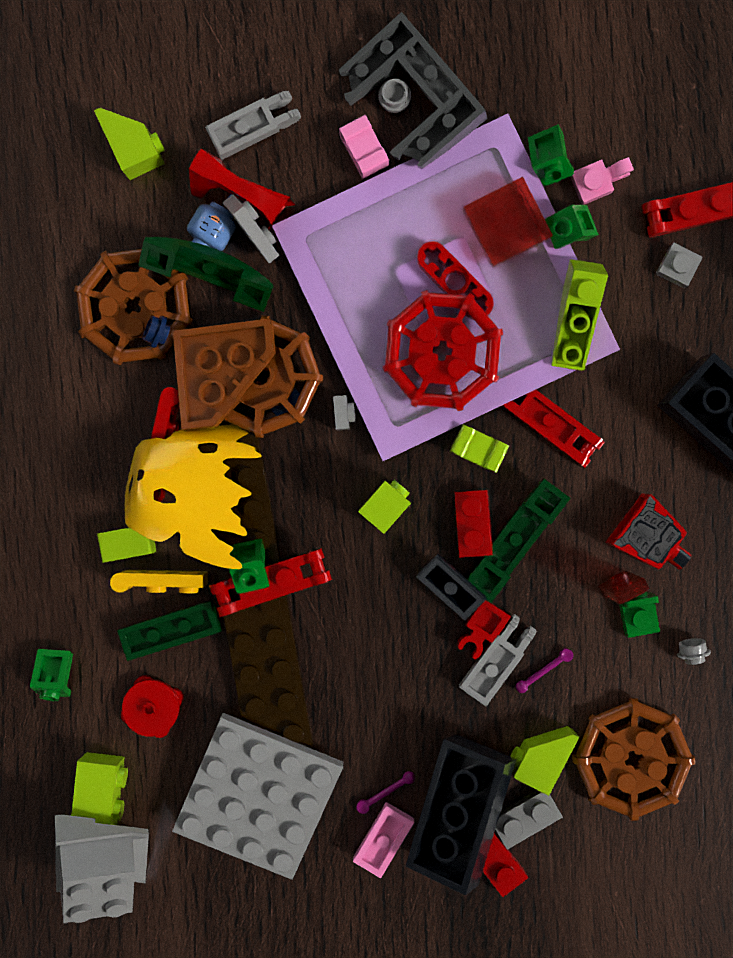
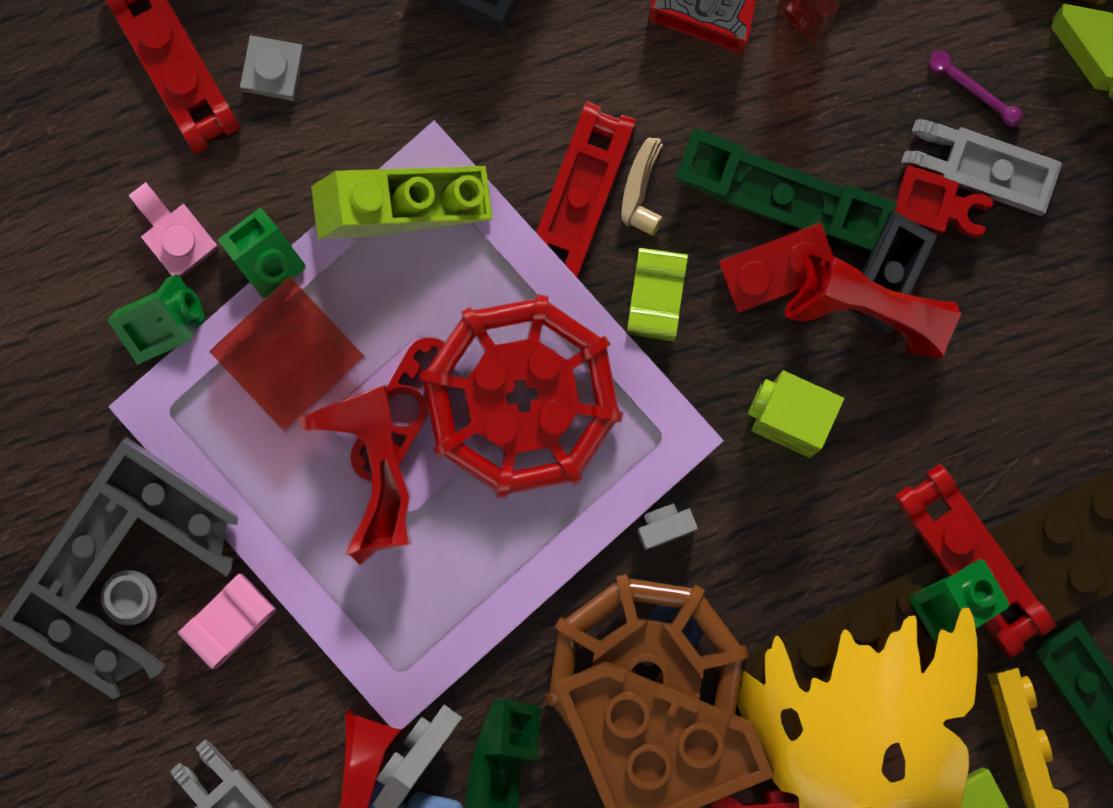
camera: 105 degrees left, 5 degrees down
(450, 552) = (840, 286): none -> red animal
(453, 256) = (370, 420): none -> red animal
(545, 456) = (636, 187): none -> tan piece

